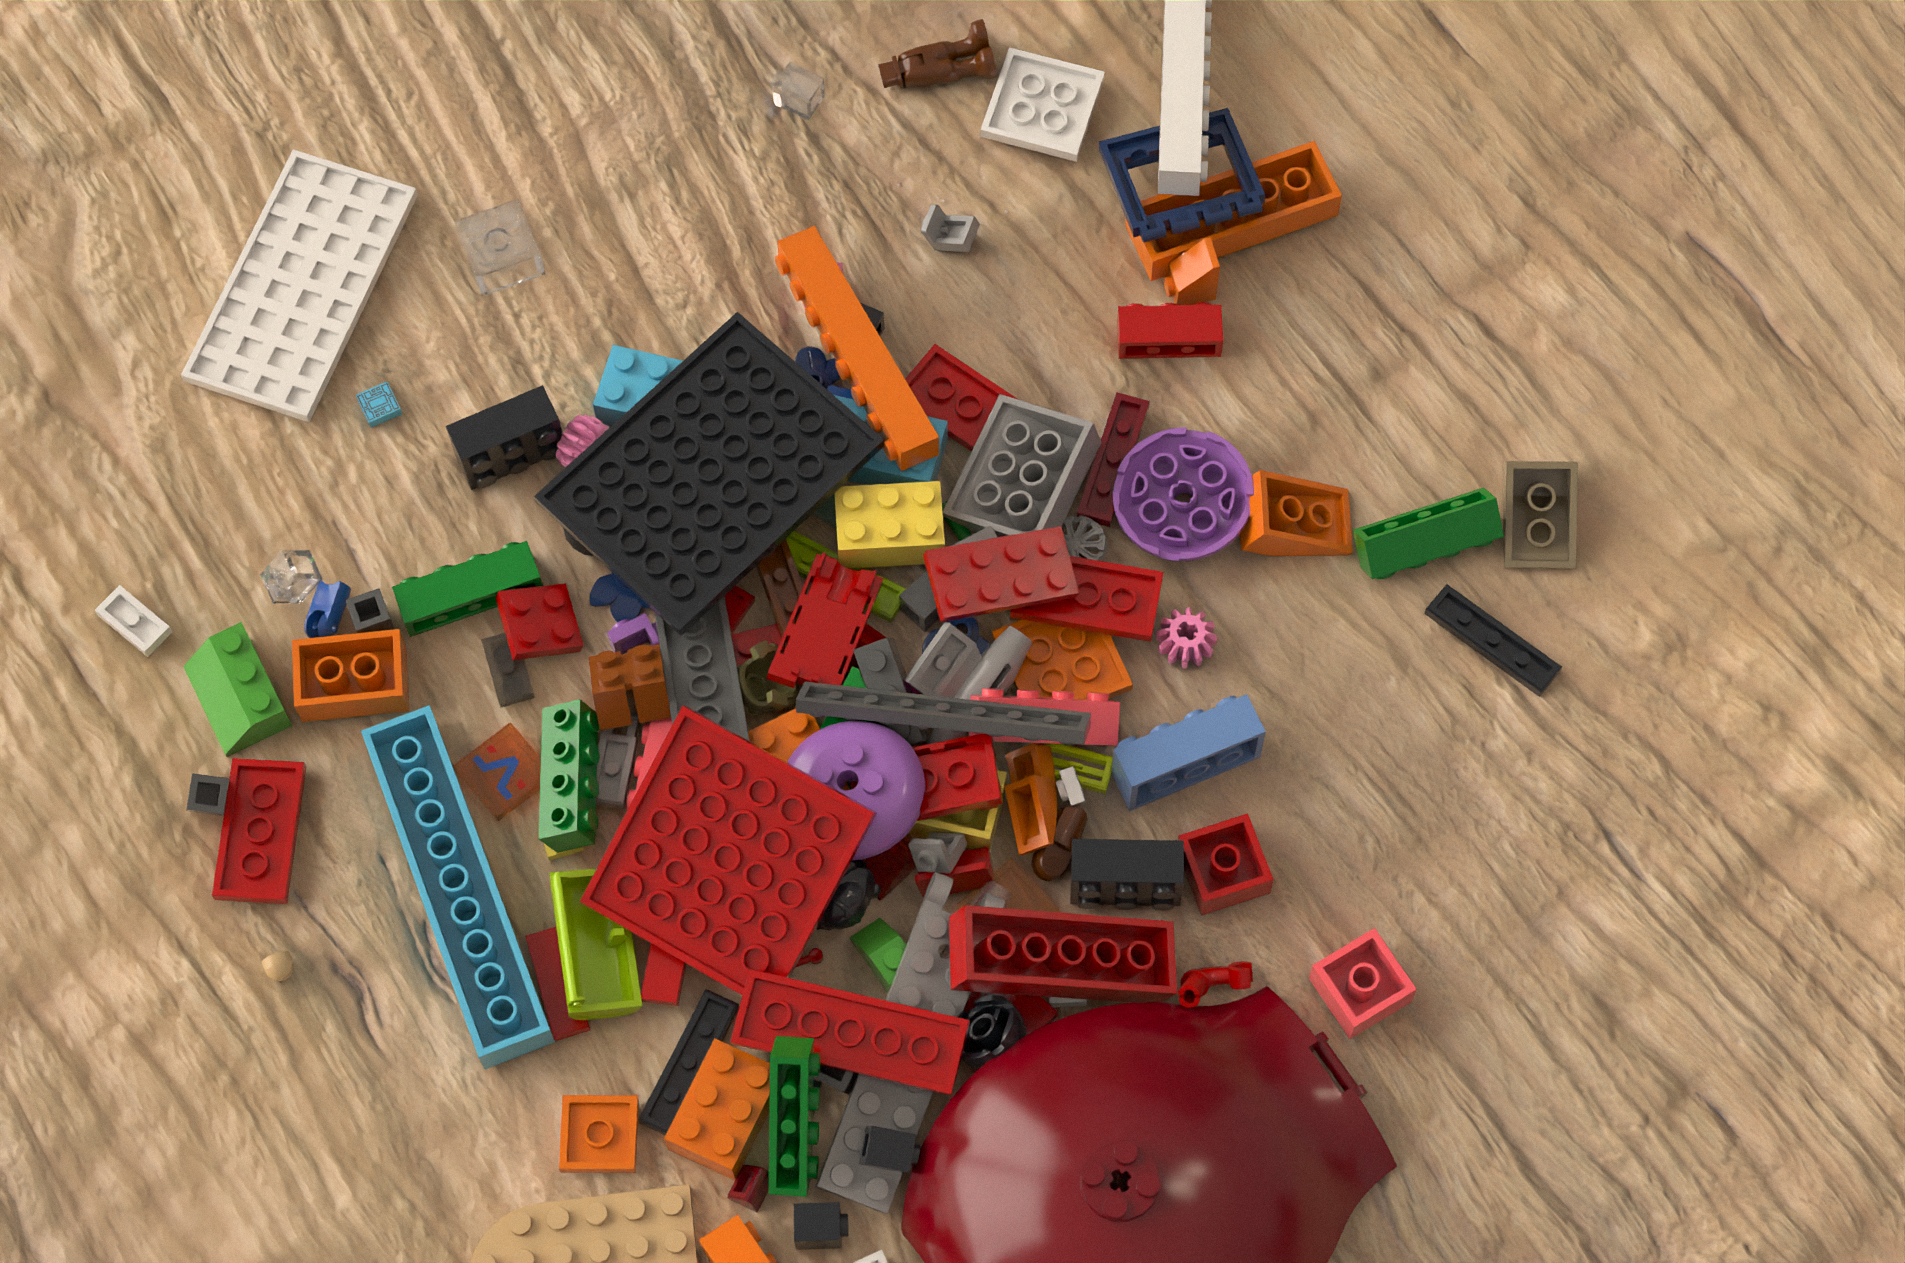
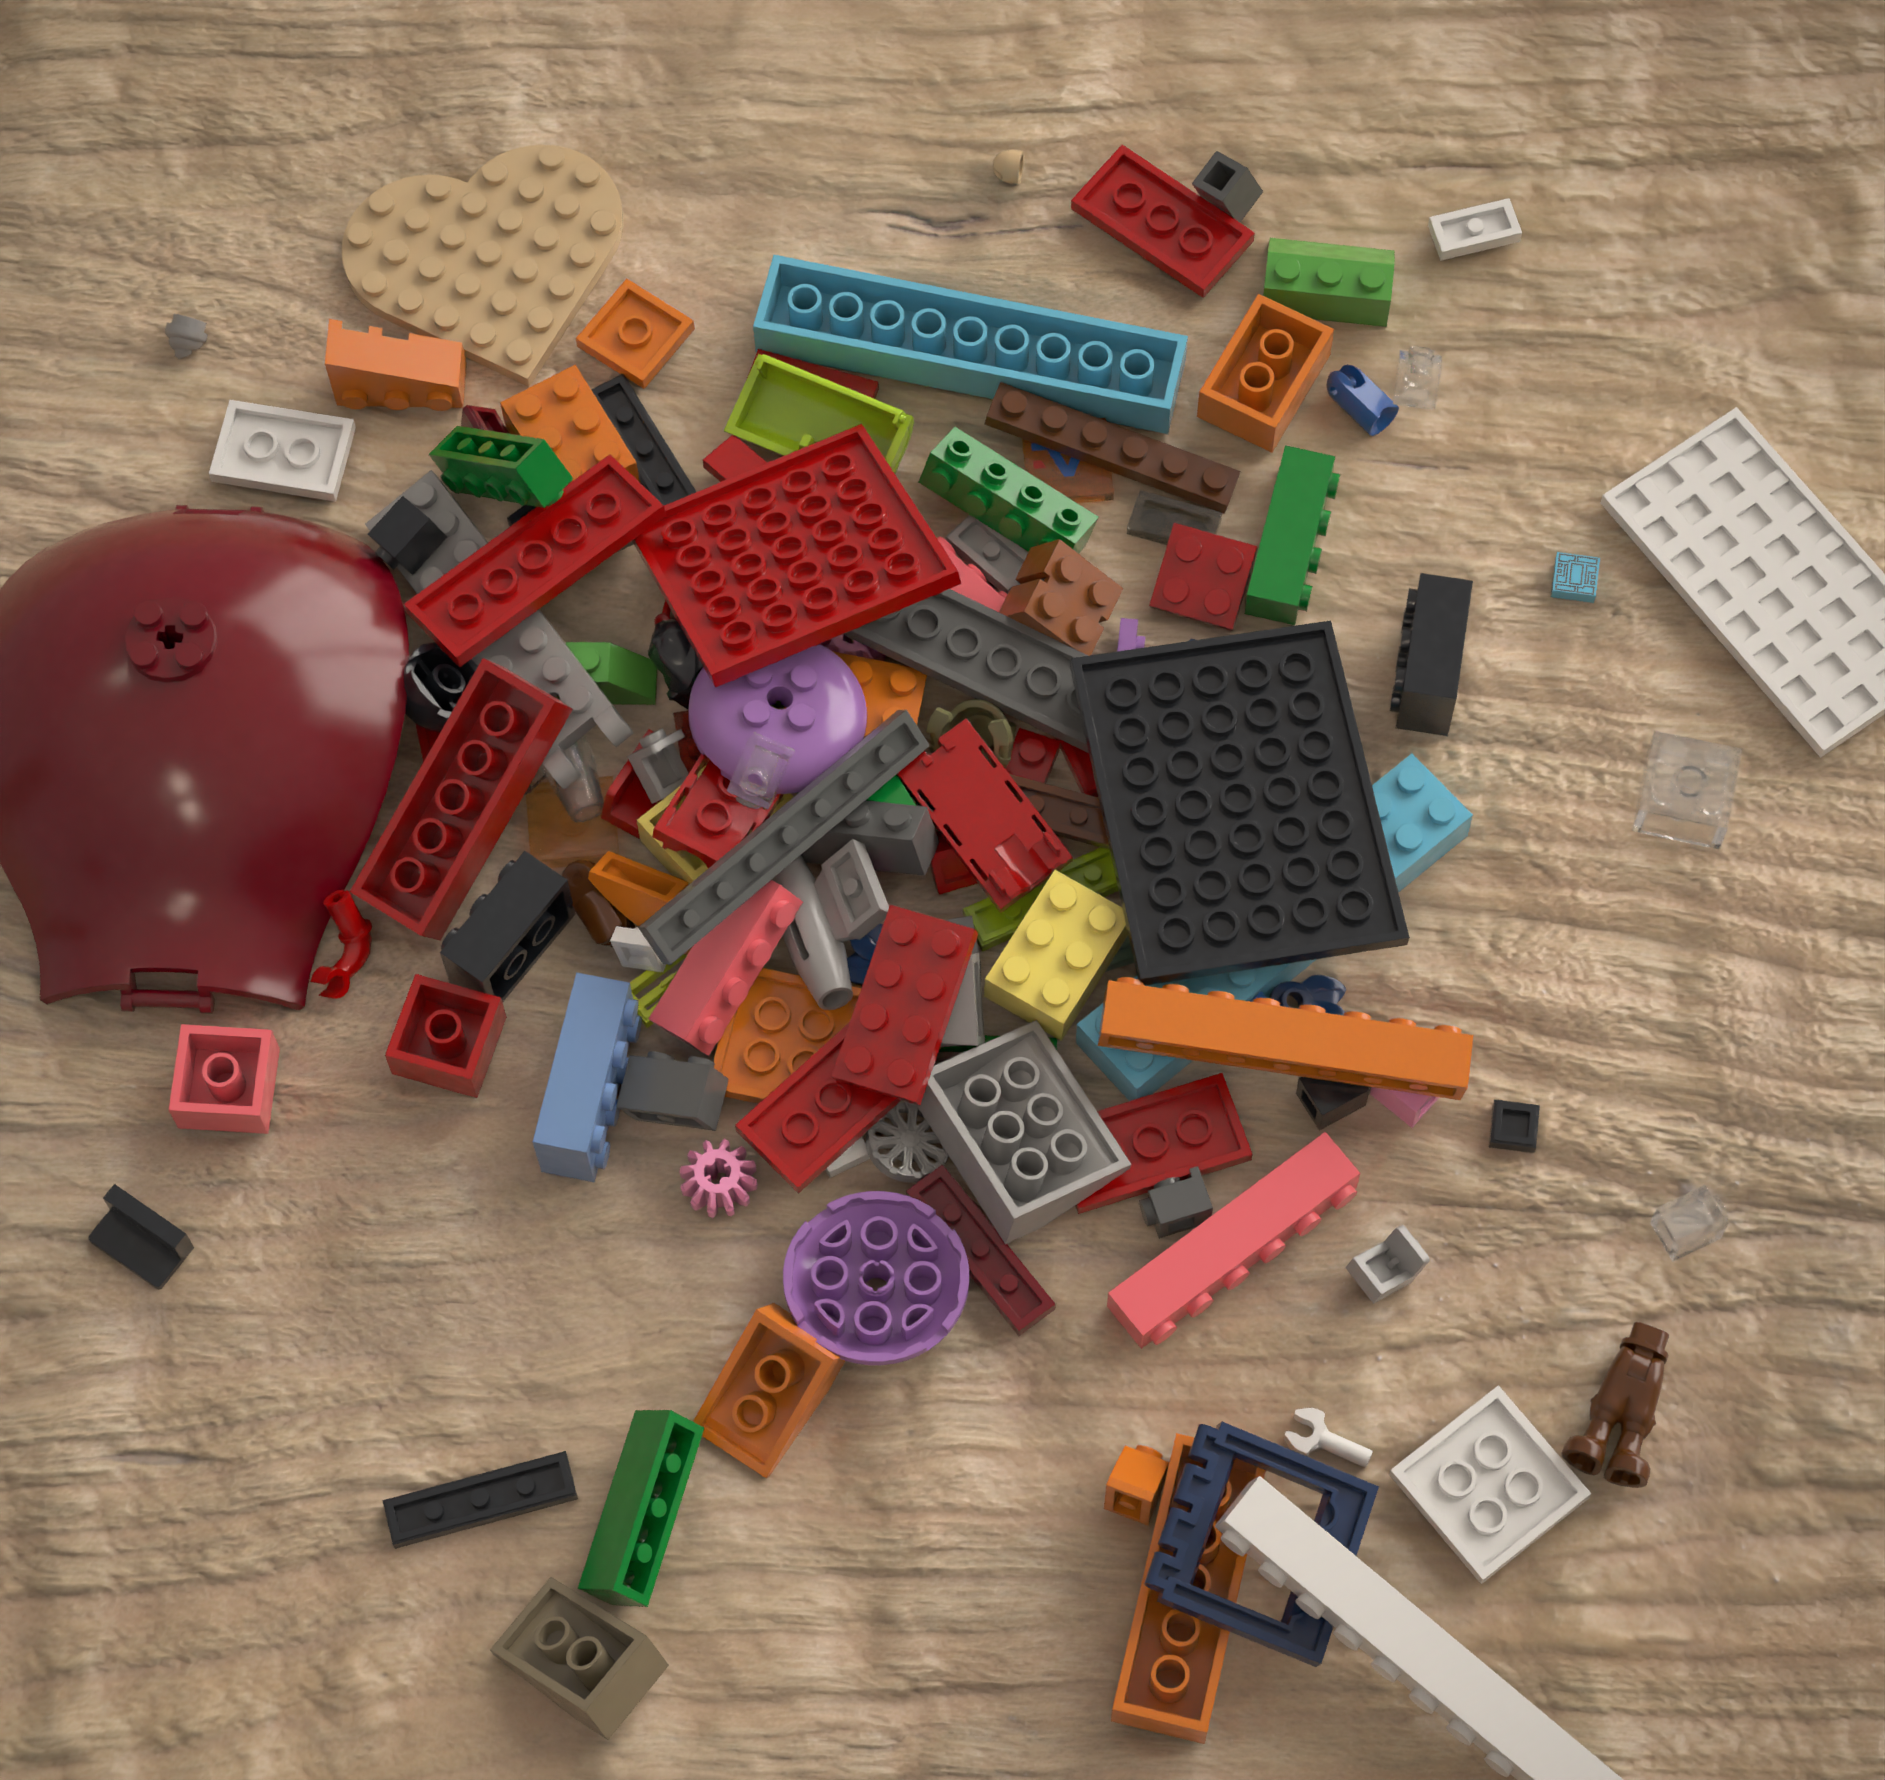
camera: 125 degrees right, 0 degrees up
(369, 612) = (1317, 422): dark grey brick -> none
(477, 742) = (1112, 447): none -> reddish brown plate
(578, 437) = (1380, 726): bright pink gear -> none
(801, 217) = (1514, 1126): none -> black tile
(819, 1226) = (399, 457): black brick -> none
(919, 747) = (766, 760): none -> clear brick
(998, 321) = (1233, 1241): none -> coral brick
(999, 364) = (1177, 1204): none -> dark grey brick
(1082, 208) = (1324, 1439): none -> white bar
(1153, 694) = (673, 1091): none -> dark grey brick
(1169, 331) = (1092, 1417): red brick -> none
(1501, 967) = (140, 1238): none -> black panel

